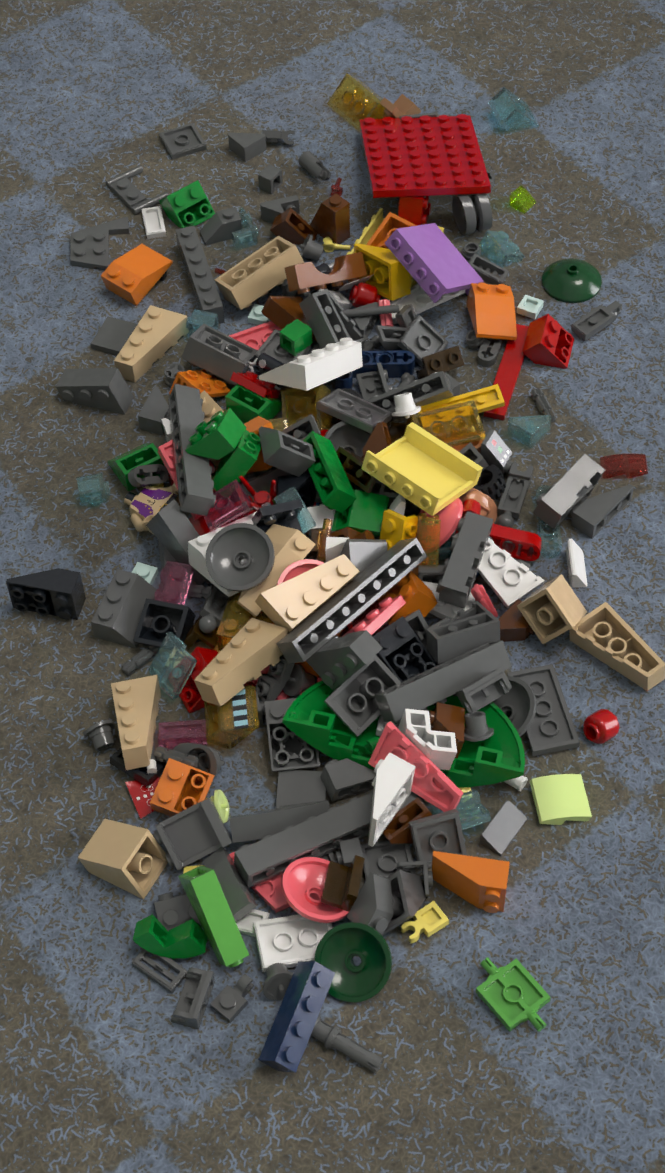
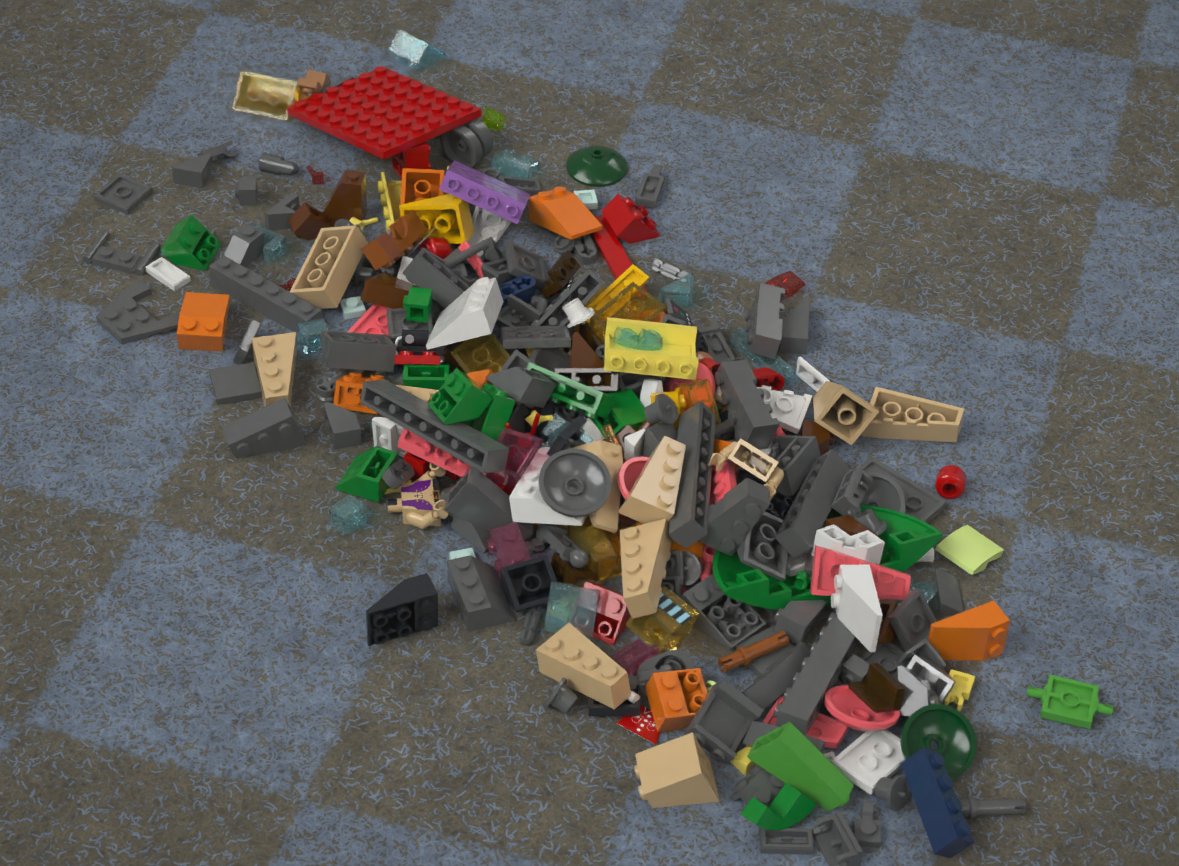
camera: 40 degrees left, 10 degrees down
(159, 301) = (246, 342): none -> flat silver tile
(281, 483) = (530, 418): none -> light yellow hand
(285, 785) = (745, 655): none -> dark orange pin
(381, 529) = (661, 410): none -> dark grey piece
(410, 618) = (752, 461): none -> tan torso
(427, 459) = (646, 340): none -> clear light blue slope

